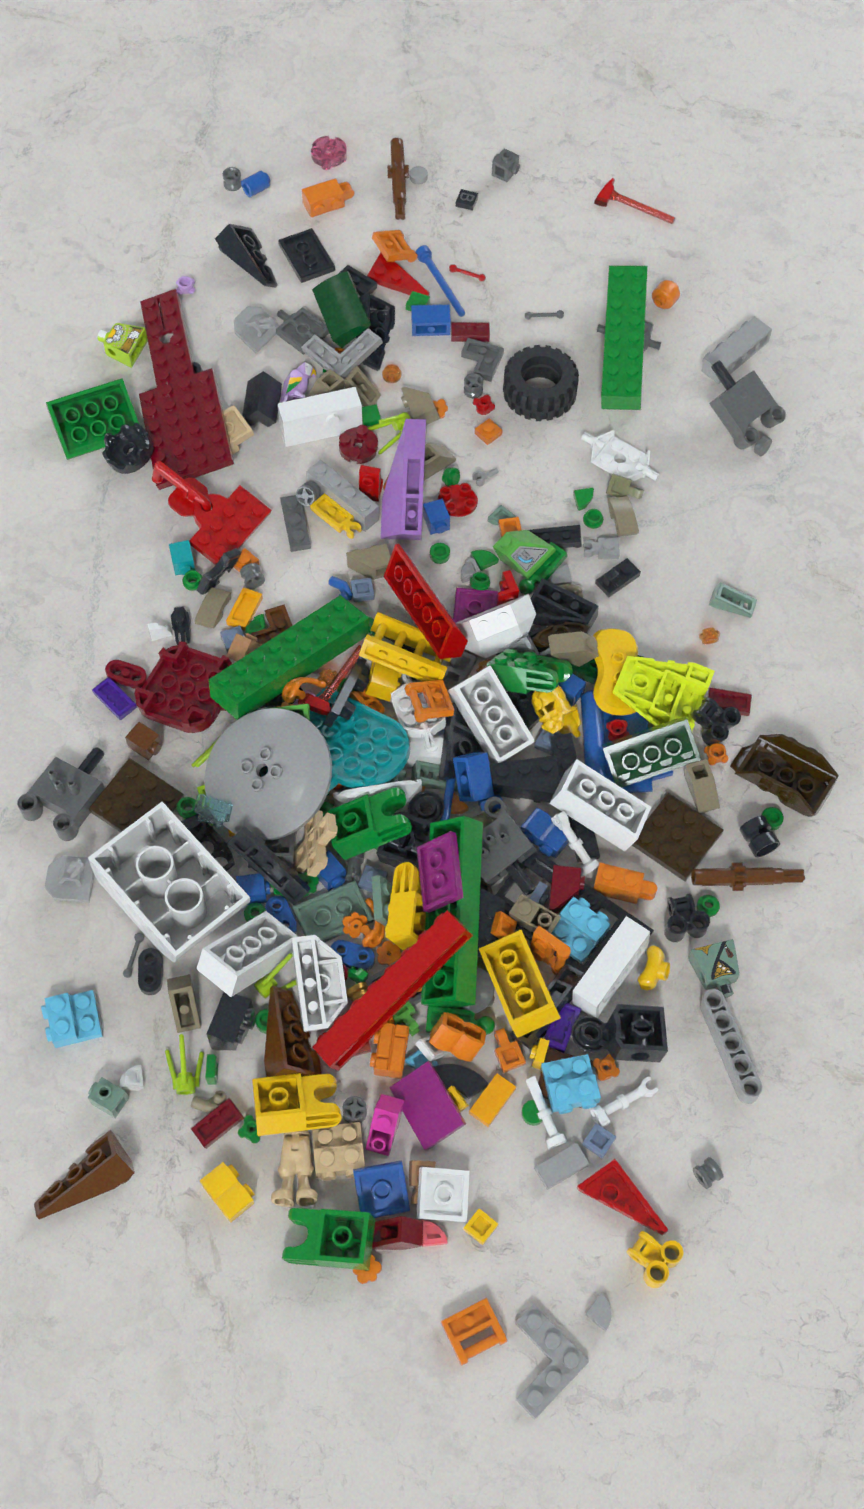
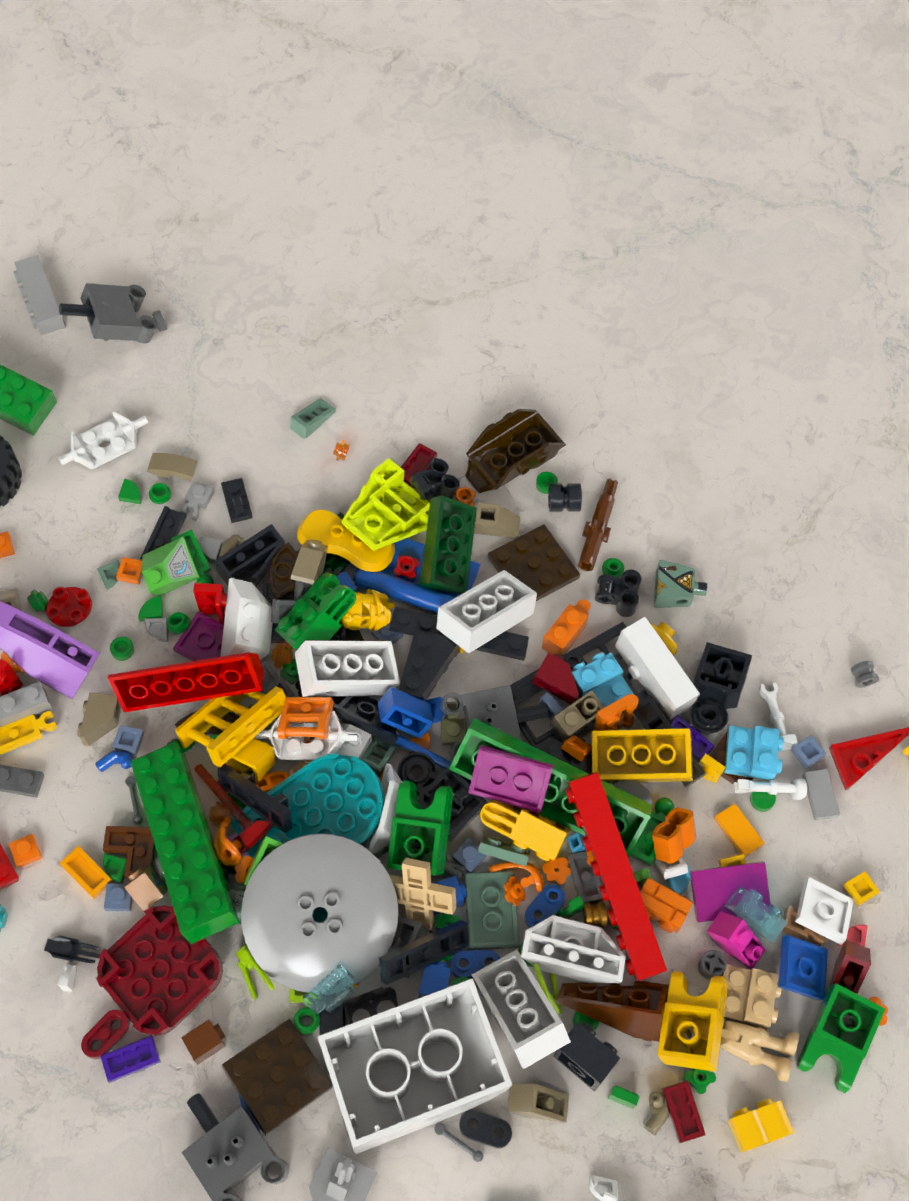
camera: 70 degrees left, 0 degrees up
(185, 1083) = (627, 1128): lime plant -> none
(191, 576) = (15, 911): green plate -> none
(211, 578) = (26, 881): black tile -> none
(212, 608) = (69, 905): dark tan slope -> none
(252, 576) = (50, 847): dark grey wheel -> none
(412, 1130) = (757, 915): none -> clear light blue brick
(436, 516) = (82, 630): blue brick -> none
(463, 1078) = (709, 850): black tile -> none
(478, 474) = (52, 570): light grey hand -> none
(508, 1054) = (701, 796): orange plate -> none
(544, 833) = (487, 672): blue brick -> none
(562, 822) = (535, 650): white piece -> none
(603, 1074) = (744, 713): orange plate -> none
(621, 487) = (139, 453): olive plate -> none
(728, 1056) = (763, 601): light grey beam -> none

